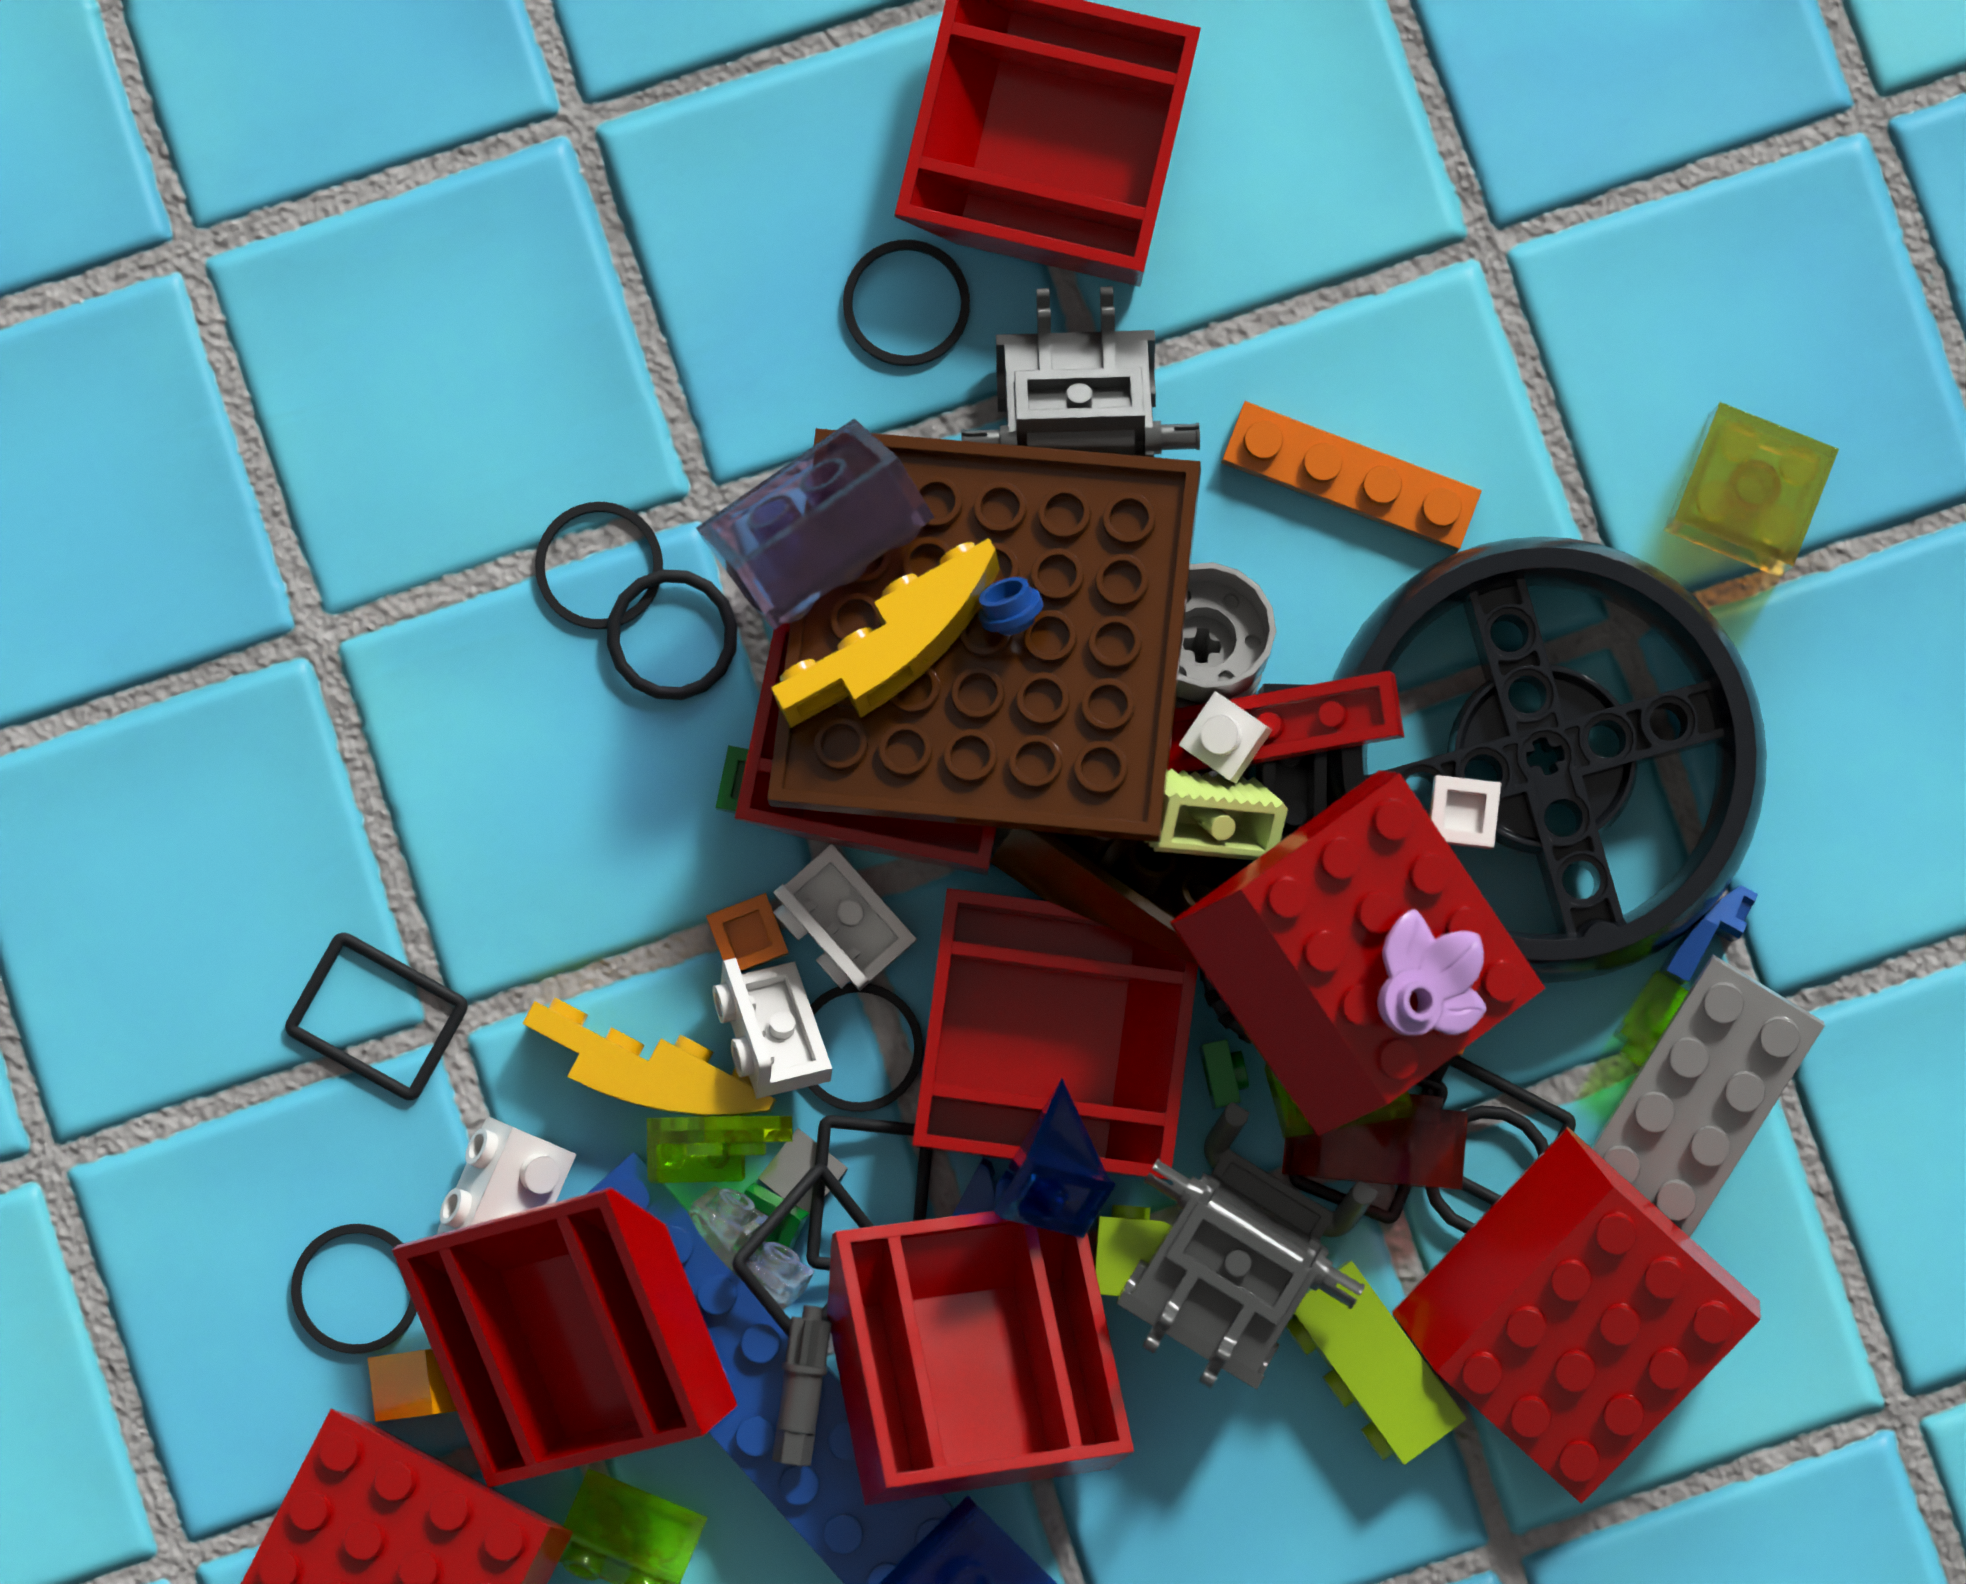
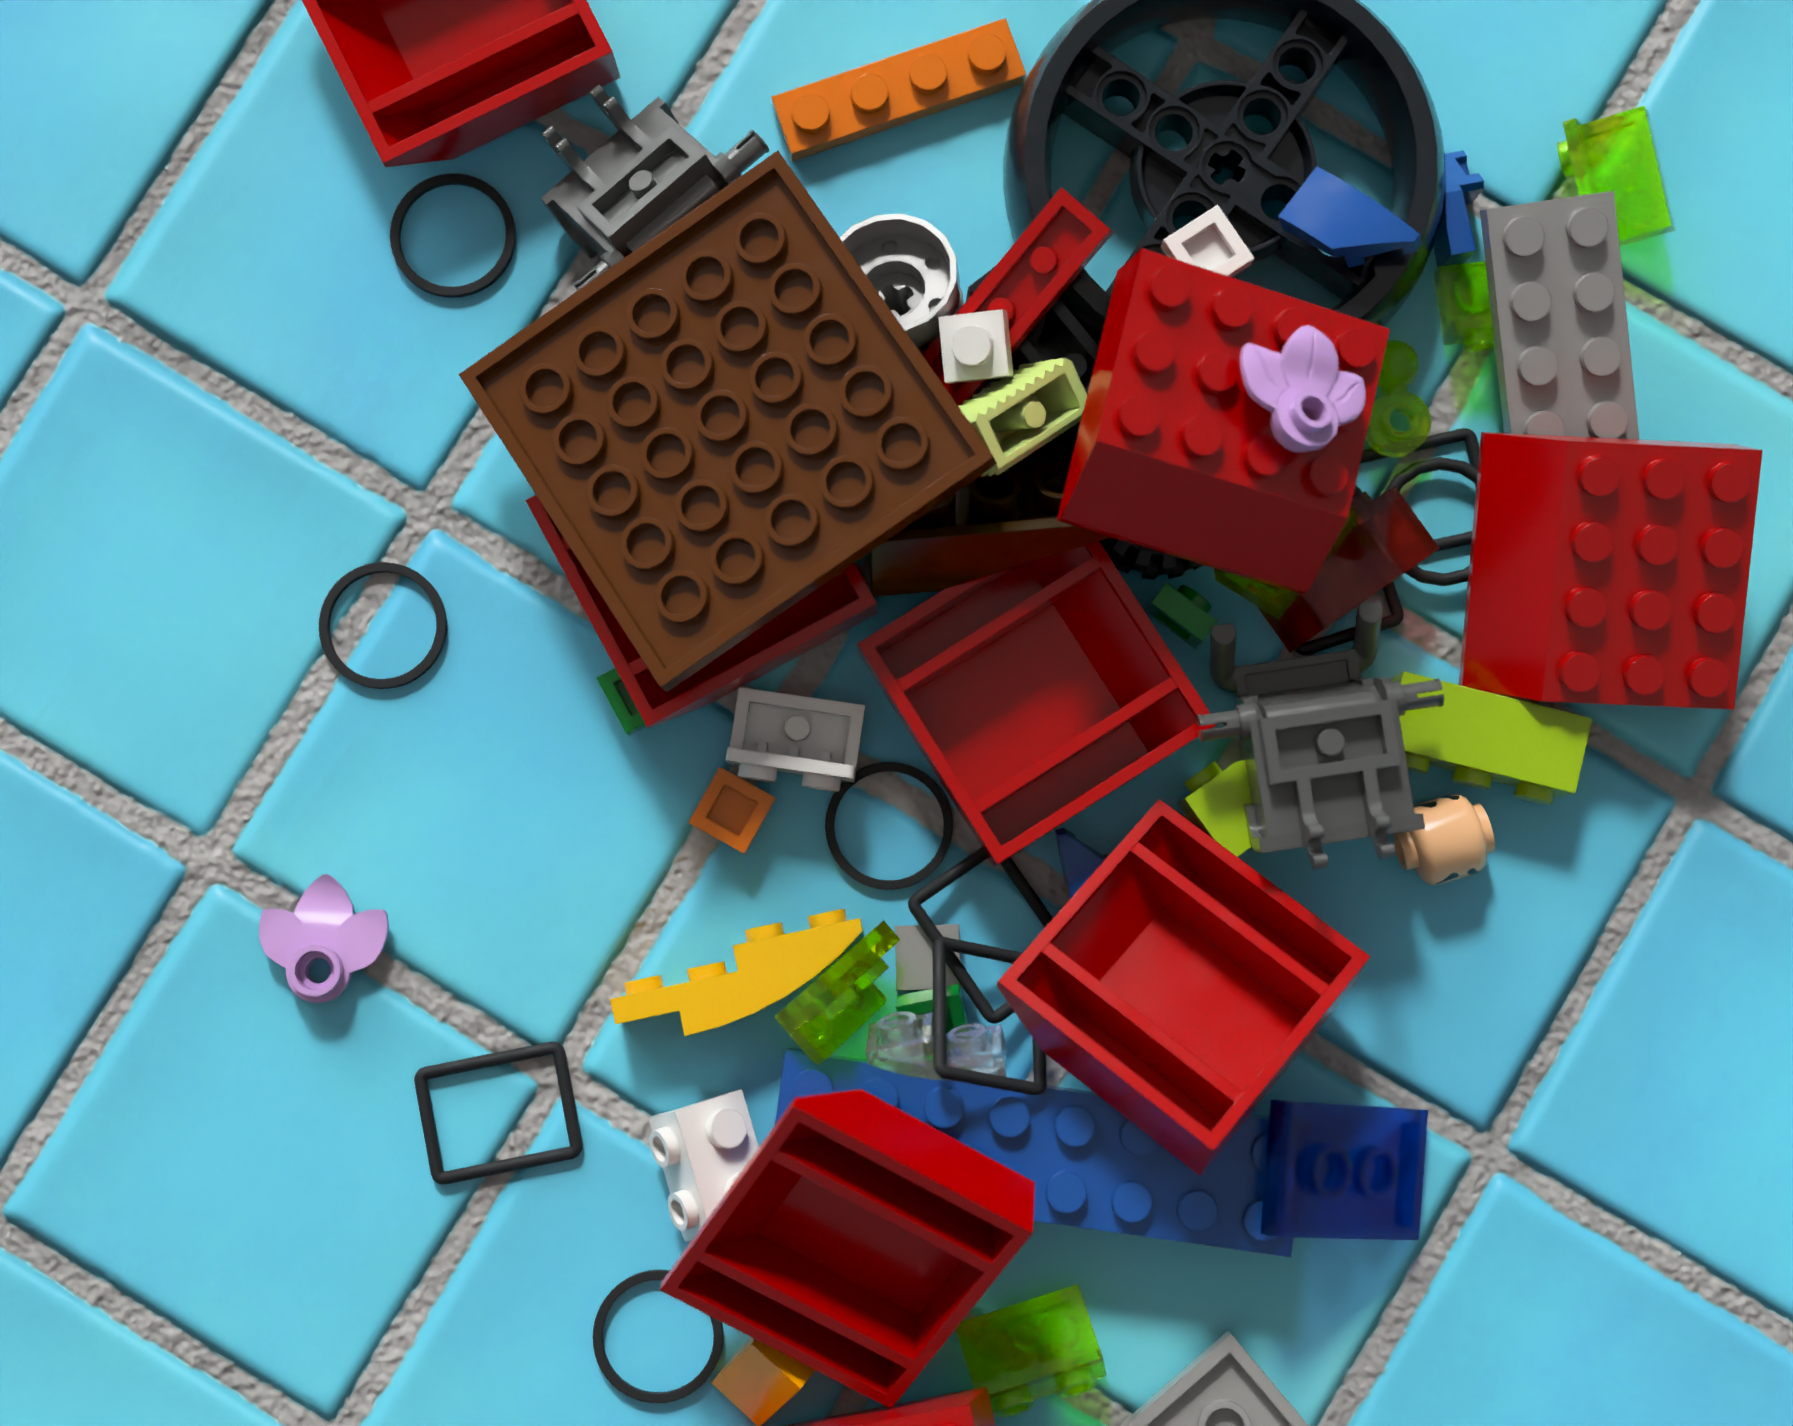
camera: 35 degrees left, 0 degrees up
(361, 764) = (323, 929): none -> lavender plate
(629, 673) = (451, 679): black piece -> none
(772, 1028) = (813, 865): white bracket -> none
(801, 1387) = (1072, 1124): dark grey piece -> none
(816, 523) = (519, 441): clear purple slope -> none
(918, 626) = (665, 456): yellow slope -> none
(1009, 606) = (724, 378): blue plate -> none
(1055, 1173) = (1126, 793): clear blue slope -> none
(1277, 1418) = (1451, 844): none -> light nougat head
(1551, 1020) = (1397, 372): none -> clear neon green plate
(1590, 875) = (1344, 220): none -> blue slope
(1863, 1014) = (1623, 158): none -> clear neon green bracket

